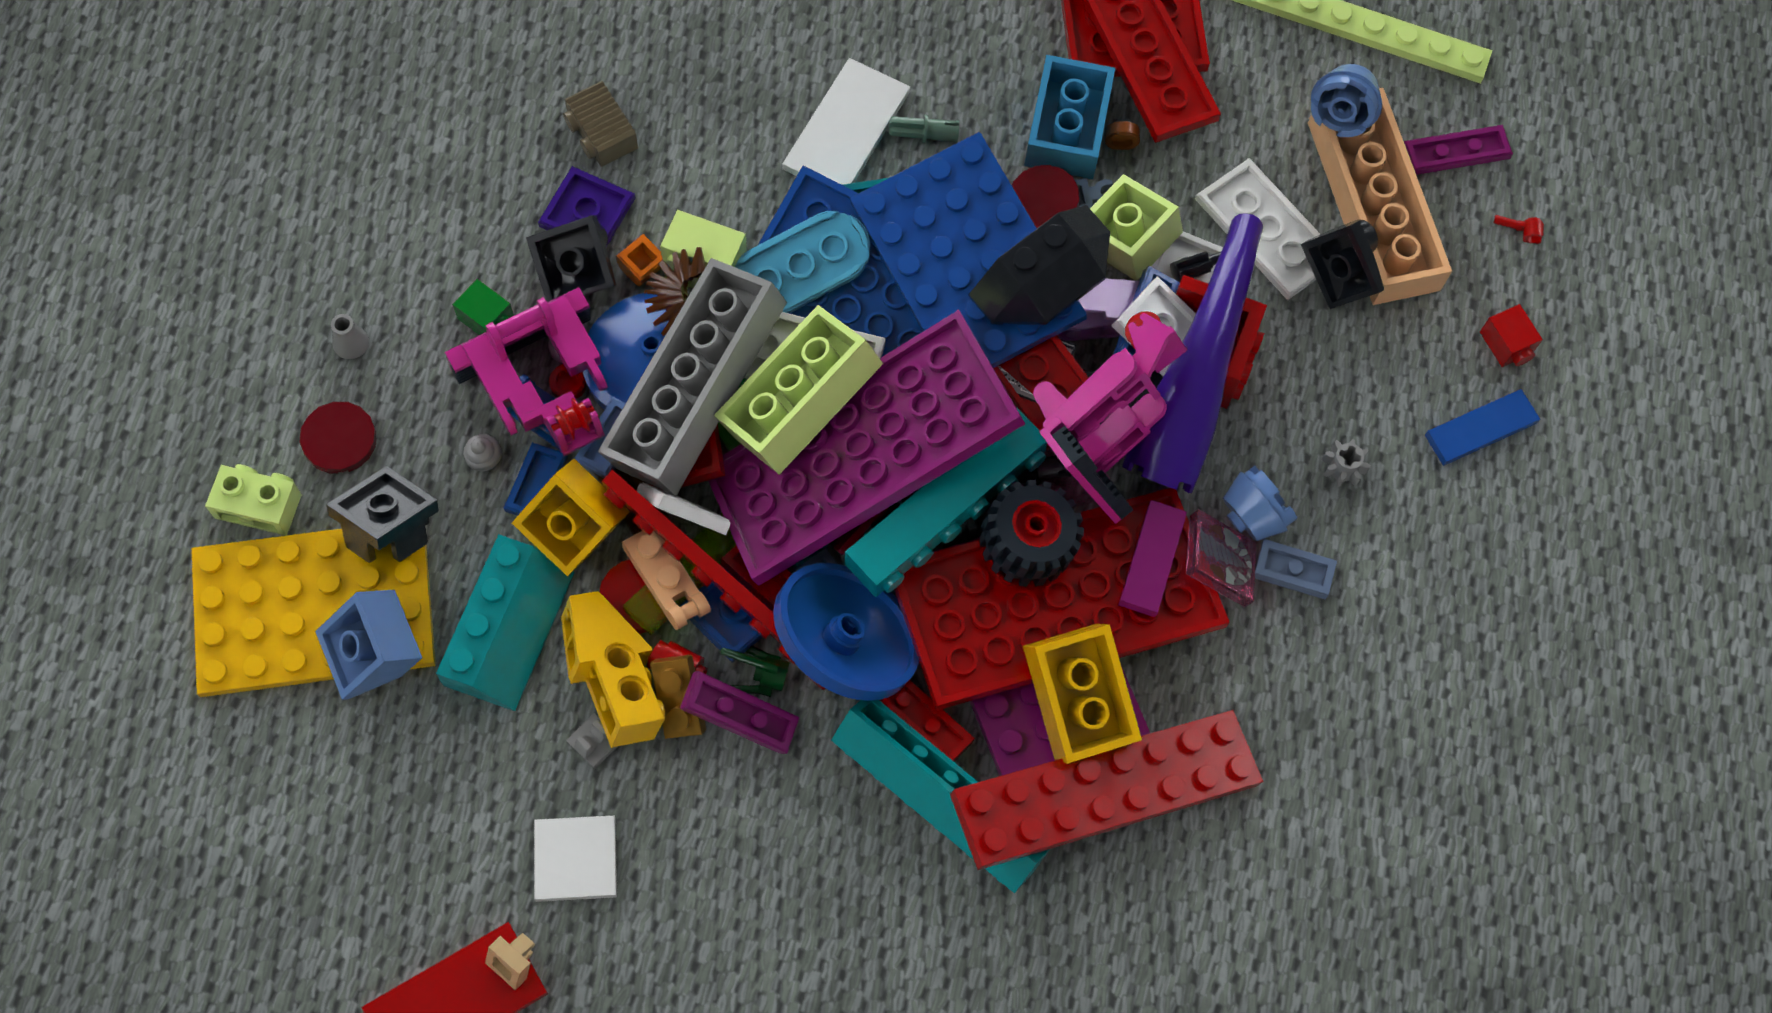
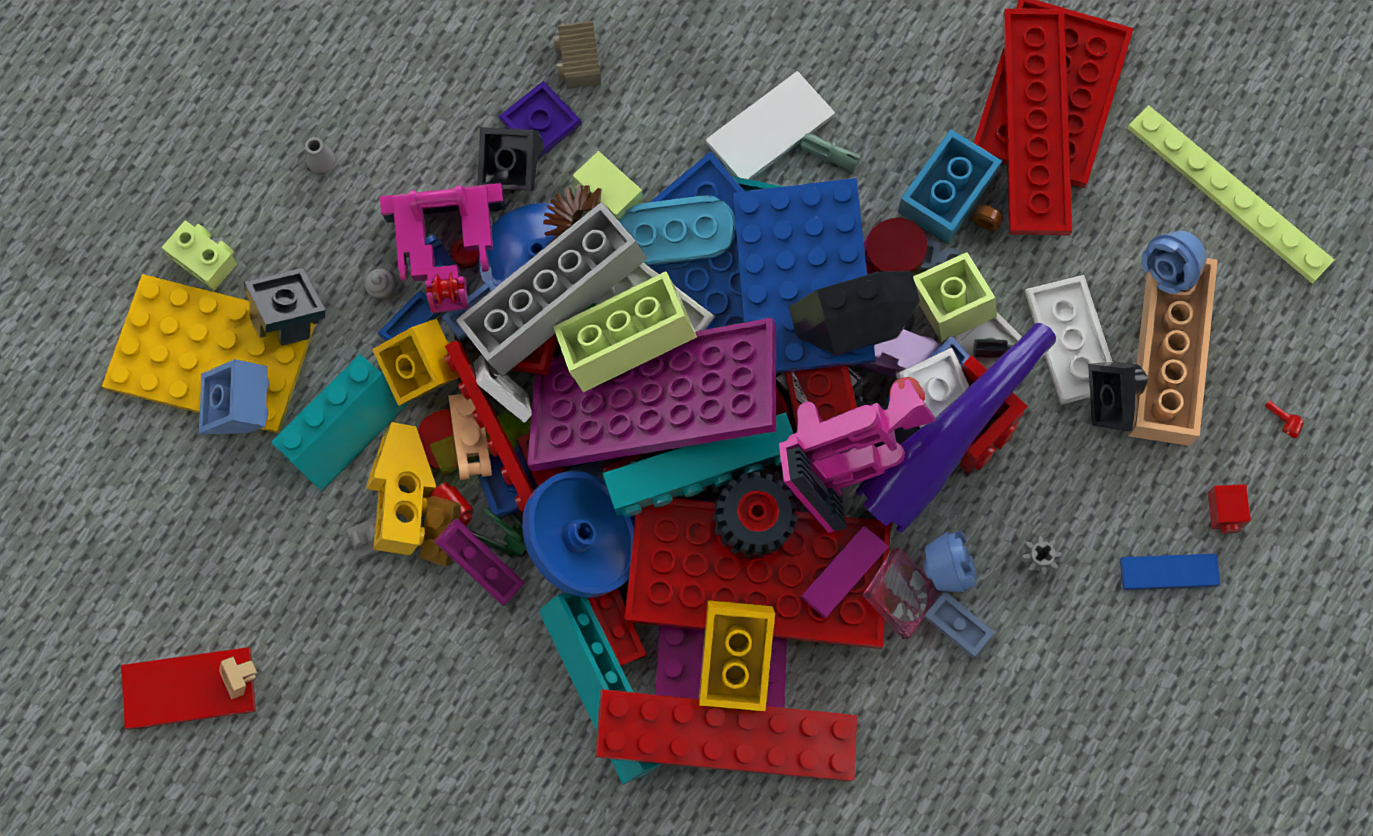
camera: 30 degrees right, 5 degrees up
(338, 437) = (281, 230): dark red tile -> none
(480, 307) = (426, 171): green brick -> none
(575, 858) = (316, 620): white tile -> none
(639, 260) = (560, 176): orange brick -> none
(1459, 149) = (1263, 333): magenta tile -> none

